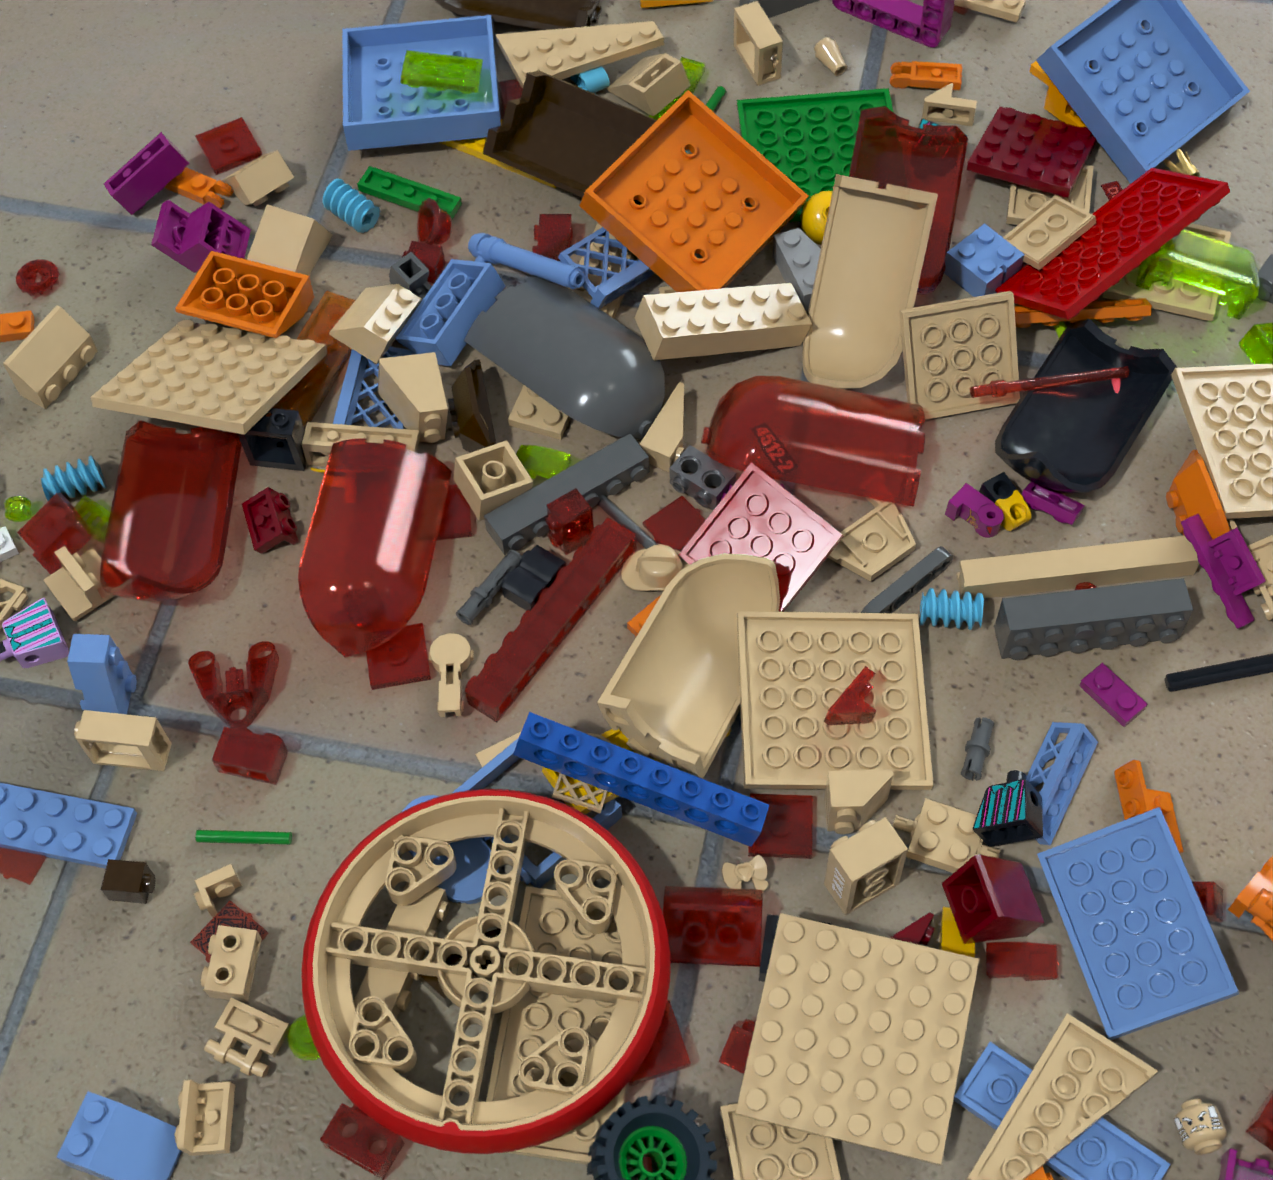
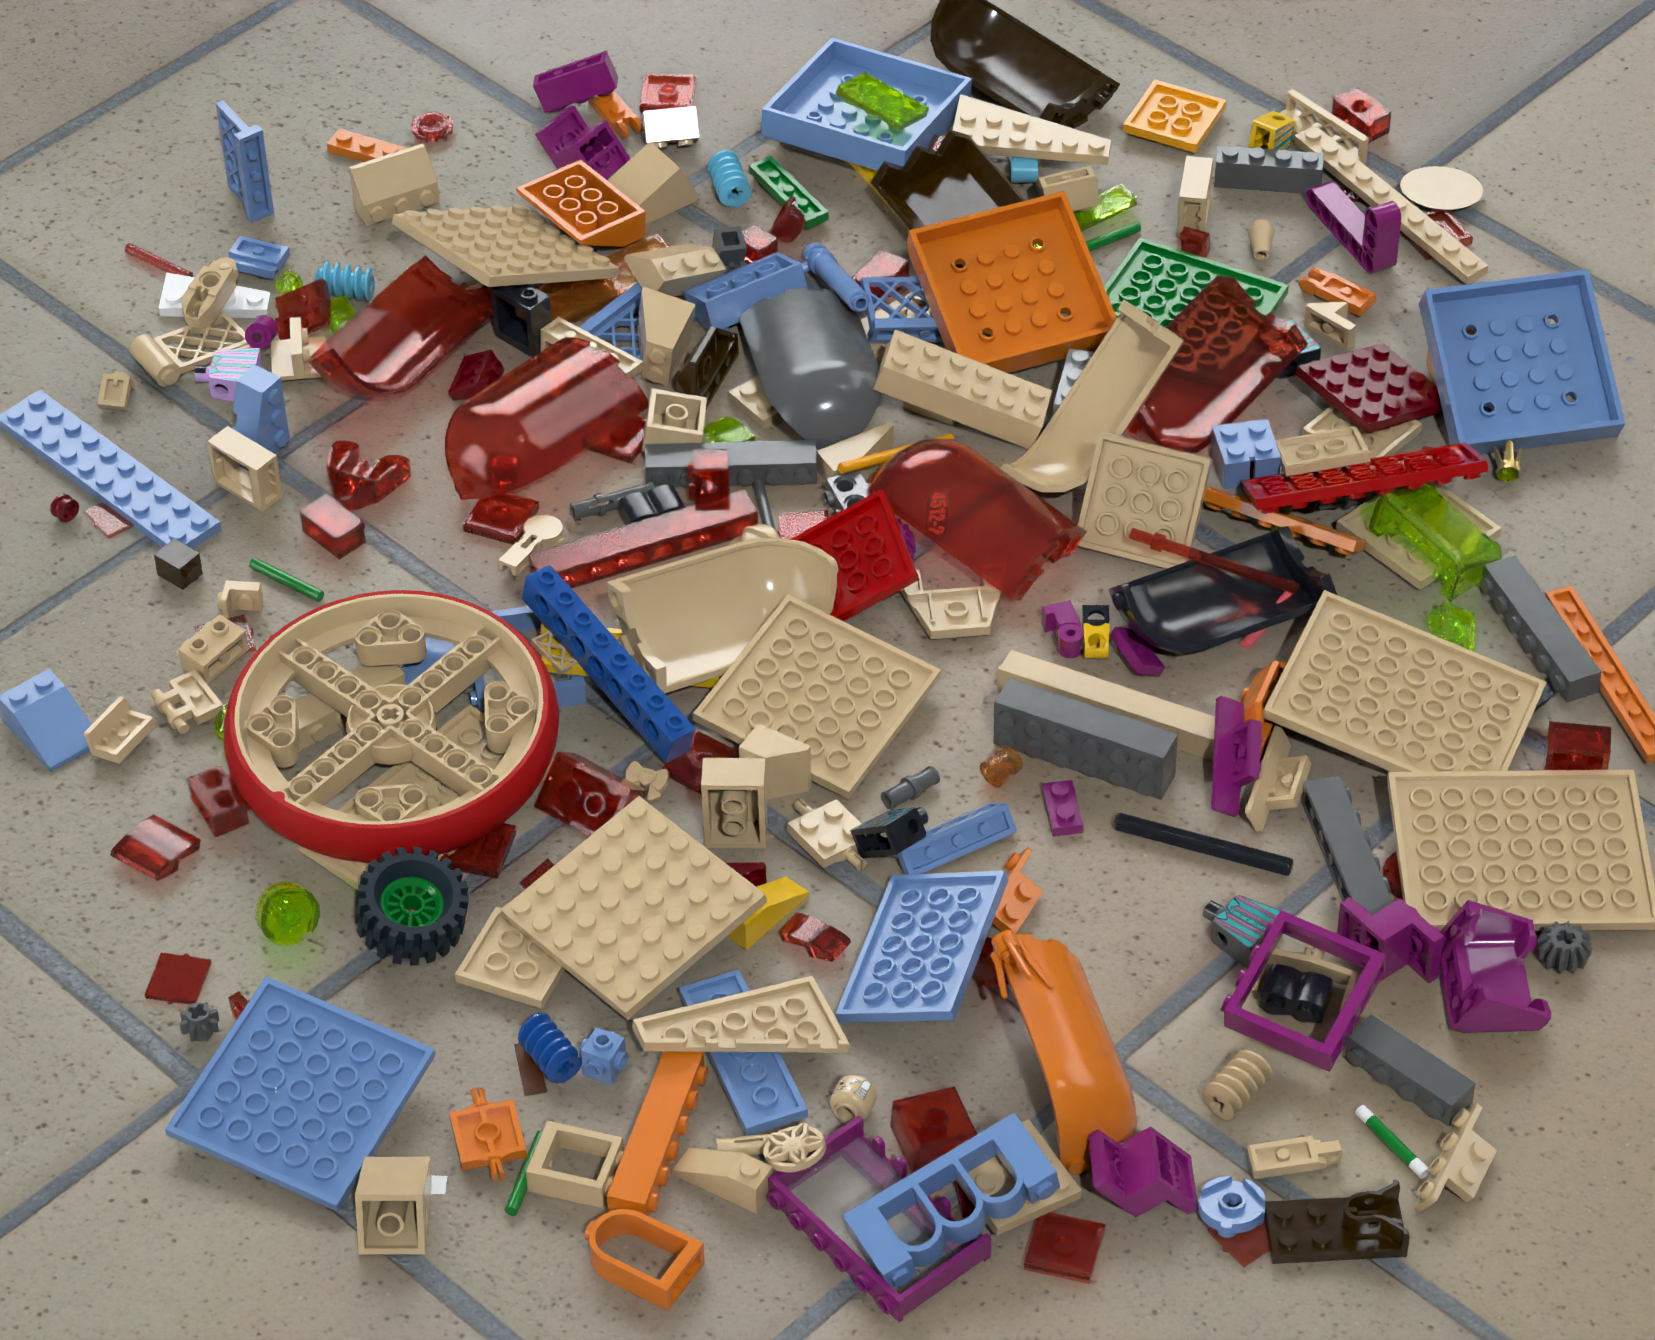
camera: 30 degrees right, 15 degrees down
(29, 576) = (261, 332): none -> magenta brick
(703, 411) = (876, 458): none -> light orange axle
(783, 83) = (1195, 241): none -> clear red tile
(850, 706) = (820, 695): clear red slope -> none
(910, 582) = (956, 648): dark grey beam -> none
(951, 608) = (972, 681): medium azure piece -> none
(992, 900) = (822, 876): dark red slope -> none
(1036, 683) = (998, 768): none -> clear orange wheel

